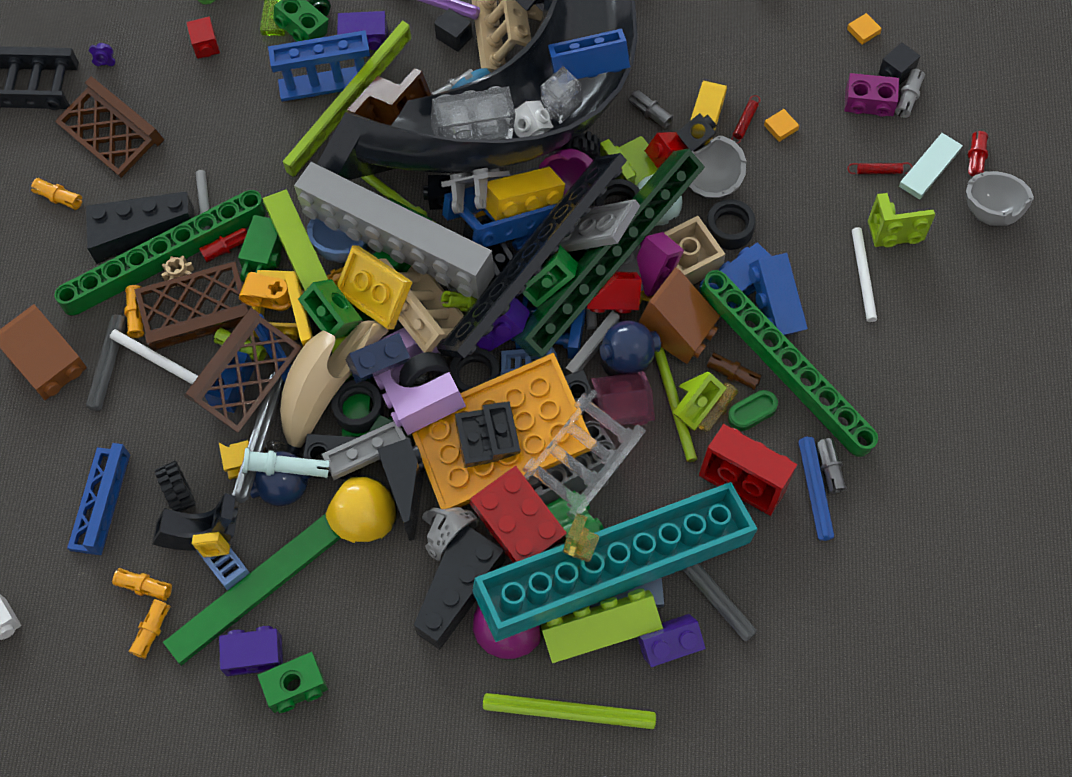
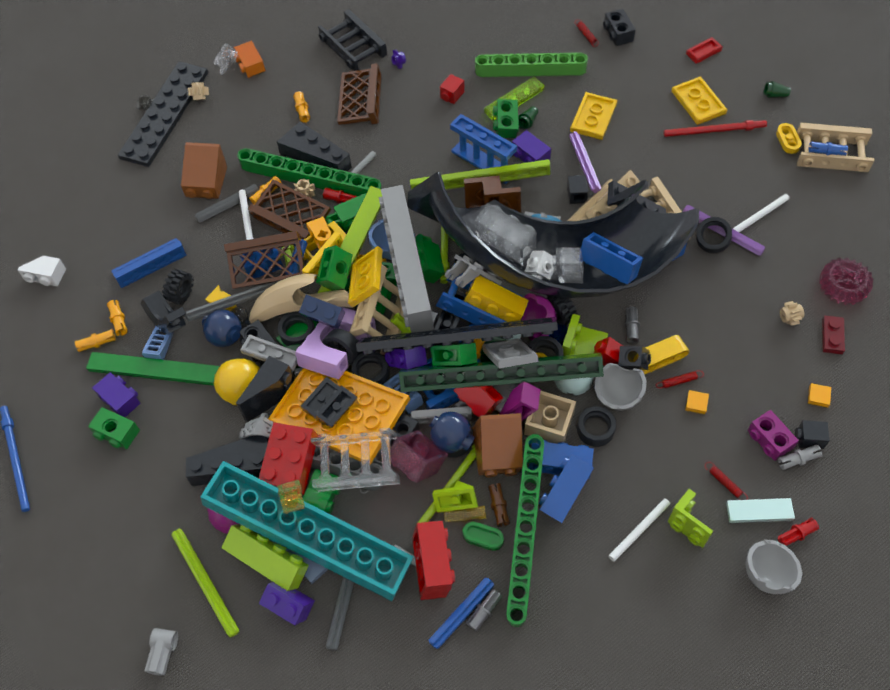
camera: 50 degrees right, 5 degrees down
(211, 544) = (158, 327): yellow tile -> none
(271, 463) = (218, 313): light aqua pin -> none

